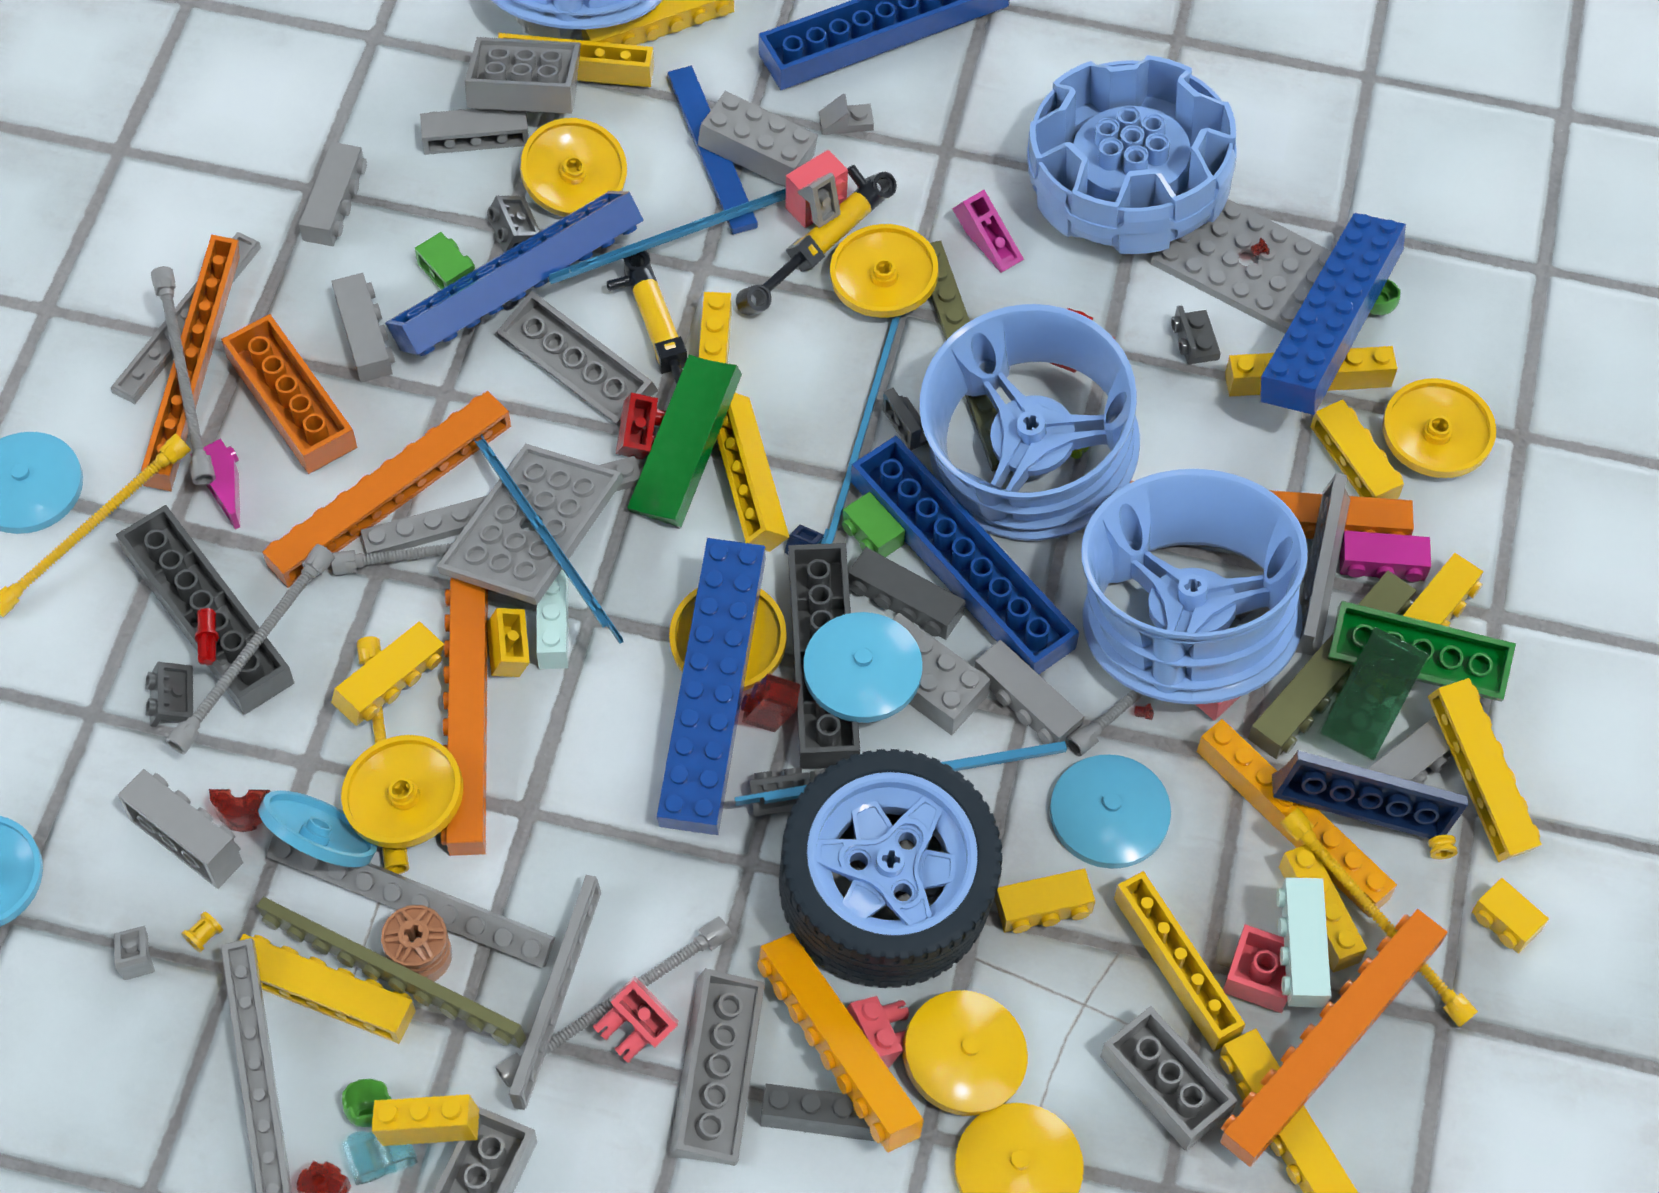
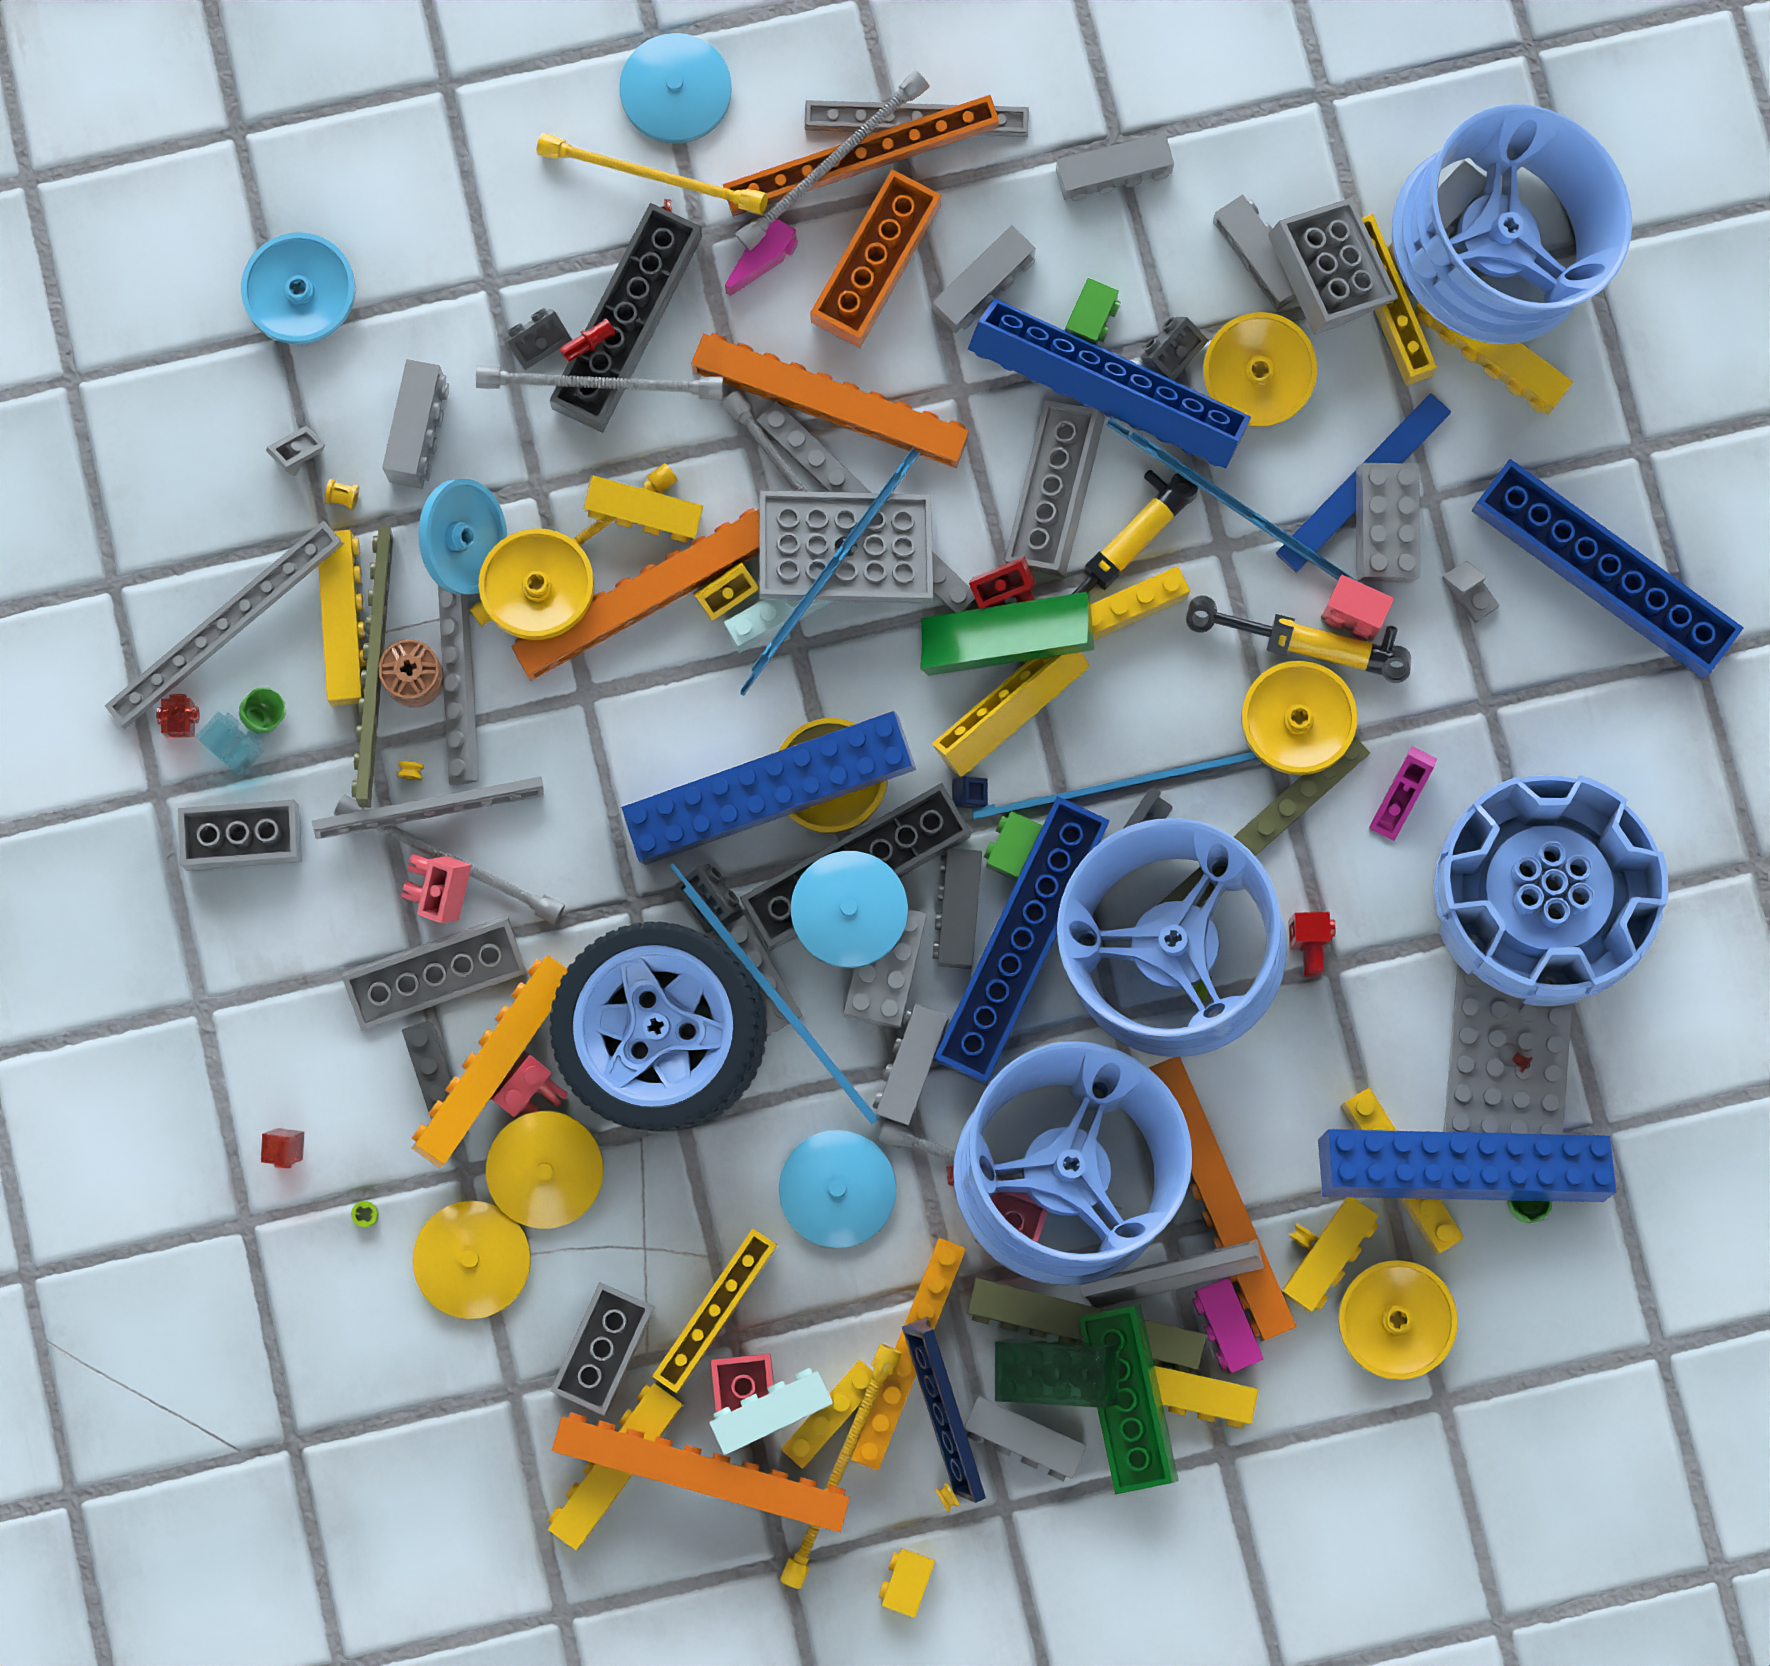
camera: 65 degrees right, 20 degrees up
(238, 813) = (455, 457): clear red cylinder -> none
(425, 1120) = (257, 767): yellow brick -> none
(508, 995) = (410, 770): none -> yellow bush
(770, 702) = (778, 846): clear red brick -> none
(822, 199) = (1330, 620): light grey slope -> none
(1045, 901) = (717, 1172): yellow brick -> none
(1195, 336) = (1390, 1044): dark grey bracket -> none
(1331, 466) = (1303, 1236): none -> yellow bush
(1484, 769) = (1034, 1504): yellow brick -> none

